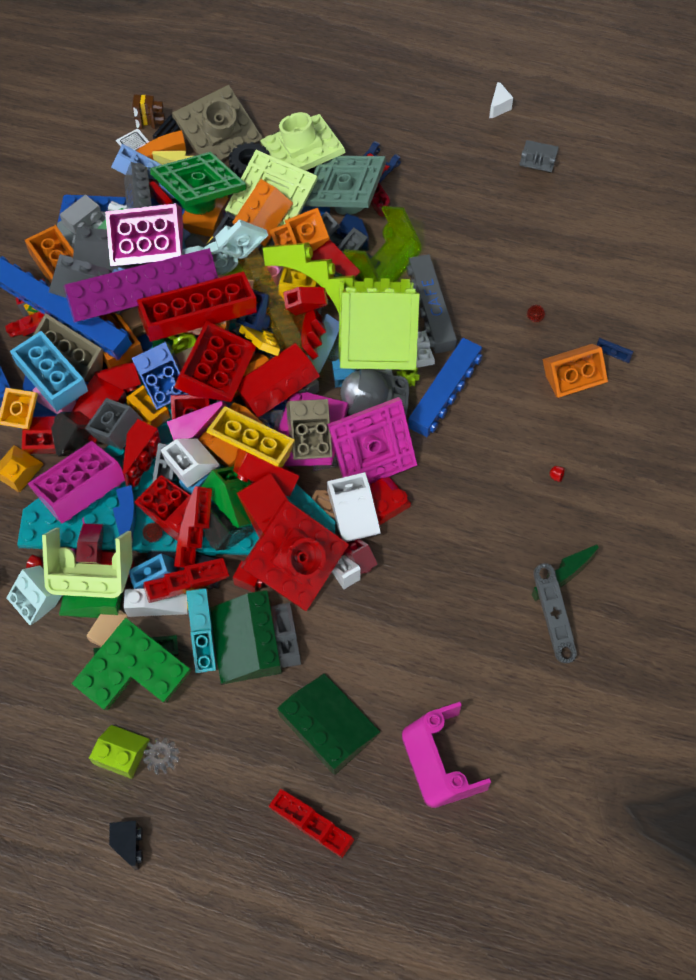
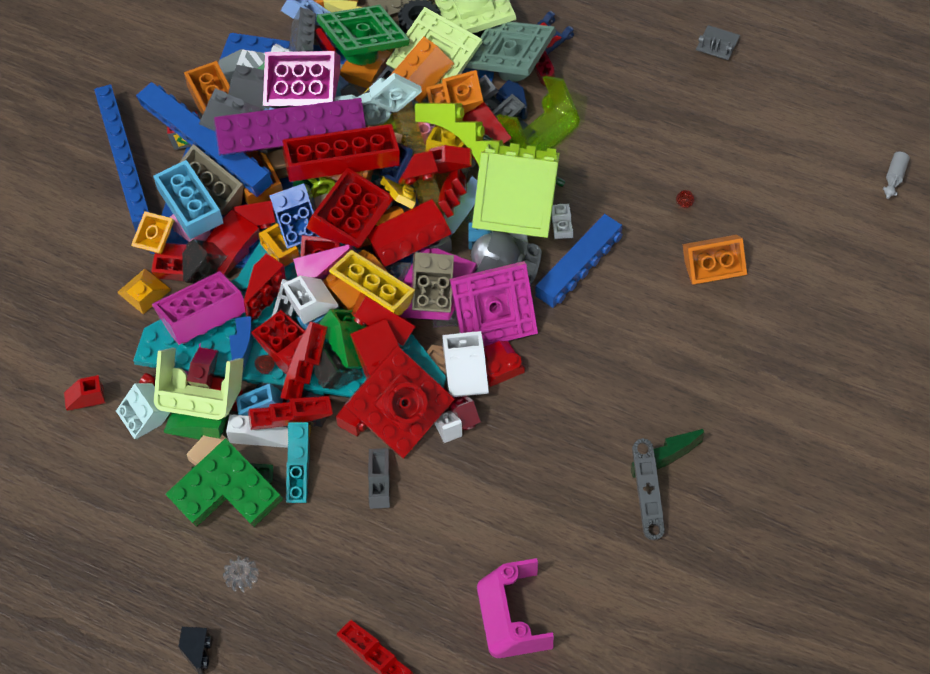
camera: 10 degrees right, 5 degrees down
(25, 325) = (171, 156): red hinge -> none
(81, 214) = (244, 53): light grey brick -> none
(112, 423) = (241, 255): dark grey brick -> none
(119, 751) = (200, 565): lime slope -> none
(245, 638) = (339, 476): dark green slope -> none
(277, 312) = (419, 167): none -> red slope
(328, 723) = (406, 565): dark green slope -> none
(410, 375) = (545, 244): lime gear -> none
(431, 304) = (580, 178): dark grey brick -> none
(557, 473) = (678, 357): red hinge -> none
(615, 350) = (759, 244): dark blue slope -> none

